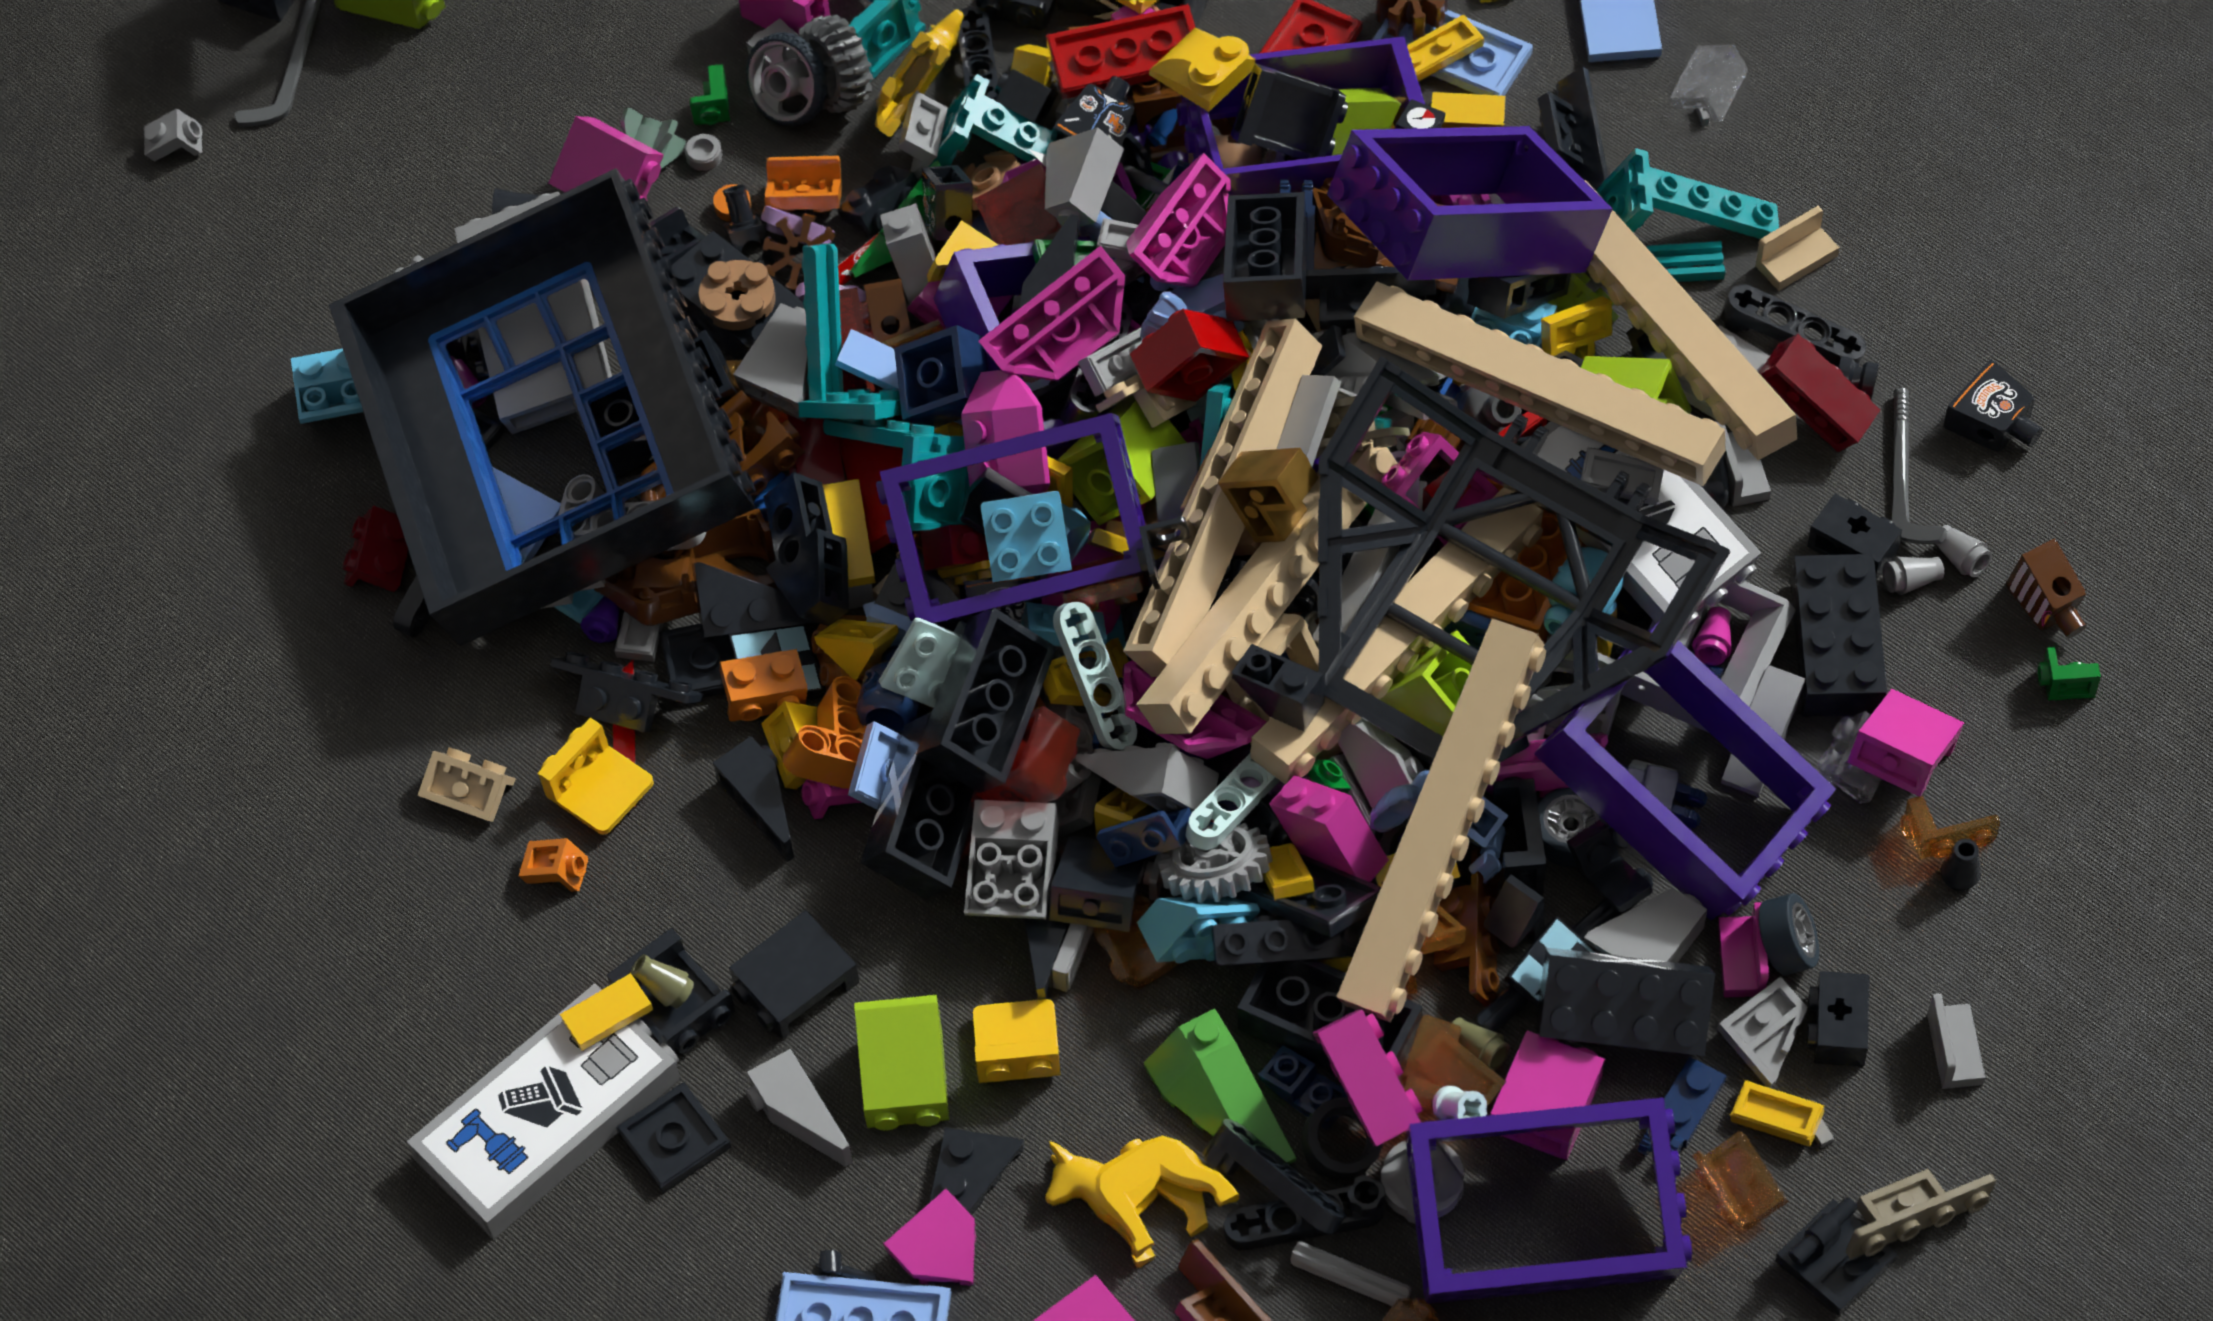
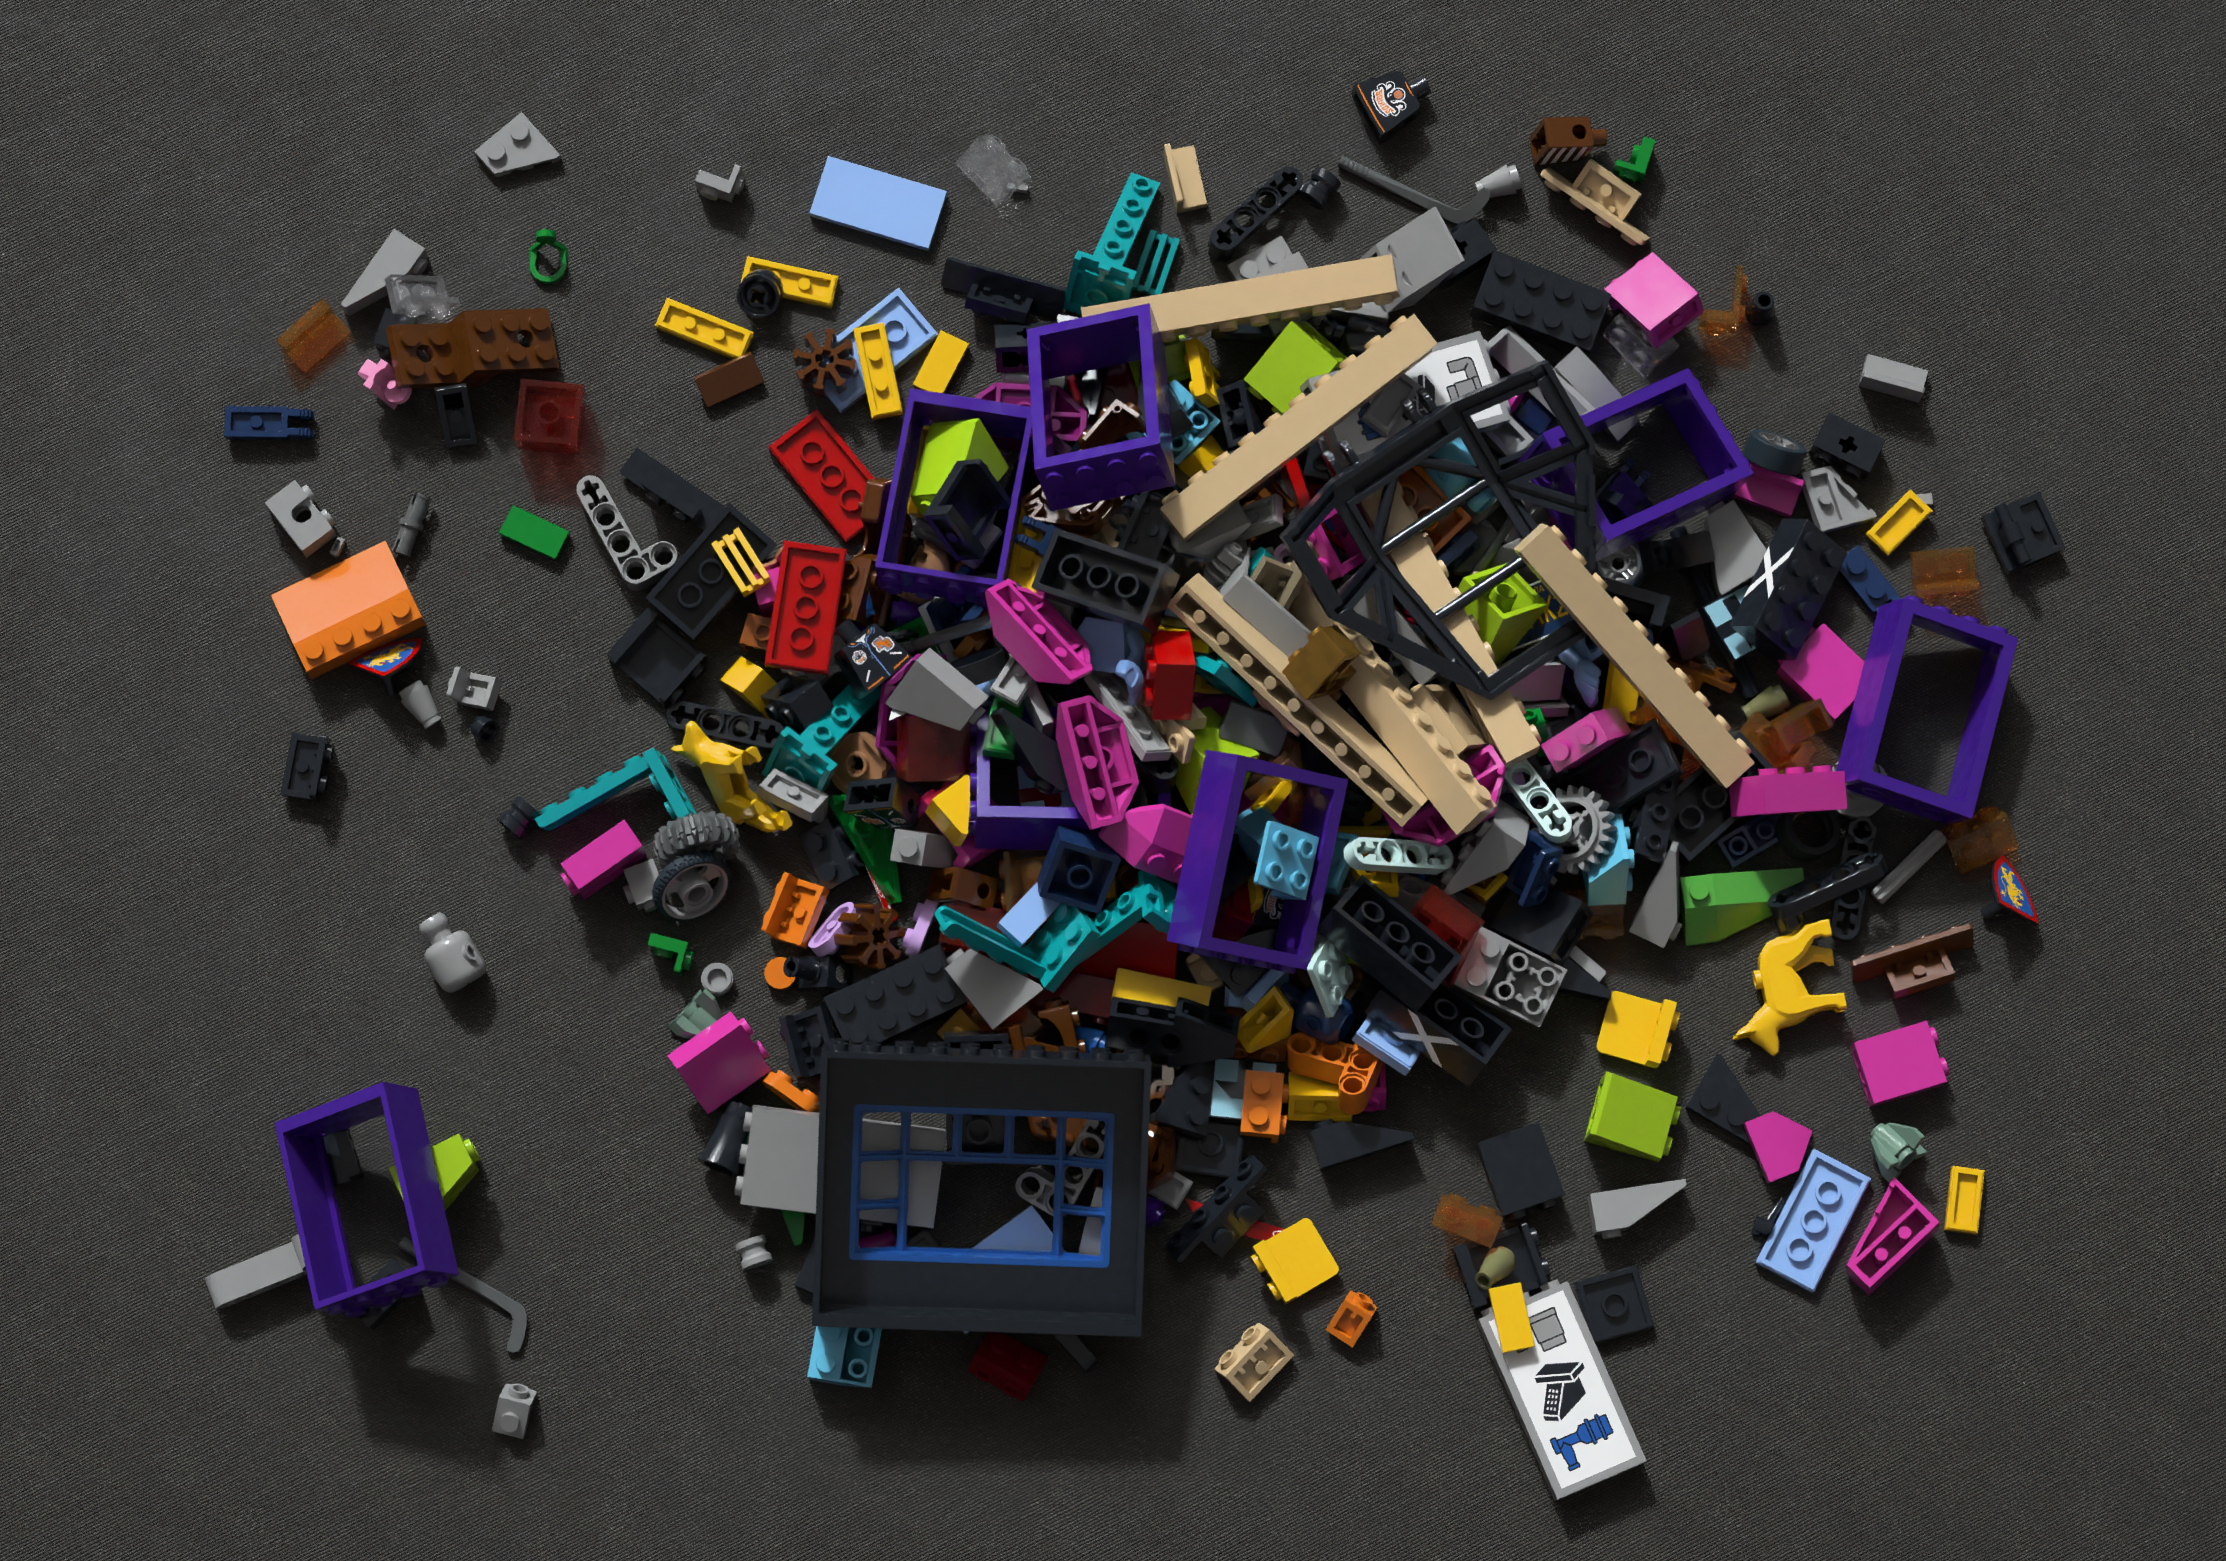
camera: 75 degrees left, 20 degrees up
(709, 932) = (1466, 1220): none -> clear orange bracket
(733, 276) = (911, 1017): medium nougat plate -> none
(1151, 538) = (1341, 777): black bracket -> none
(1165, 1002) = (1660, 908): none -> light grey slope
(1204, 67) = (890, 555): yellow slope -> none
(1280, 686) = (1483, 725): black slope -> none
(1287, 873) = (1609, 782): yellow tile -> none
(1420, 116) = (1009, 411): tile -> none
(1455, 1104) = (1828, 738): light aqua bush -> none
(1812, 477) = (1422, 257): none -> light grey slope
(1819, 392) = (1333, 222): dark red brick -> none
(1910, 573) = (1504, 228): light grey cone -> none
(1910, 1206) = (2009, 467): dark tan bracket -> none
(2004, 655) = (1603, 195): none -> tan bracket

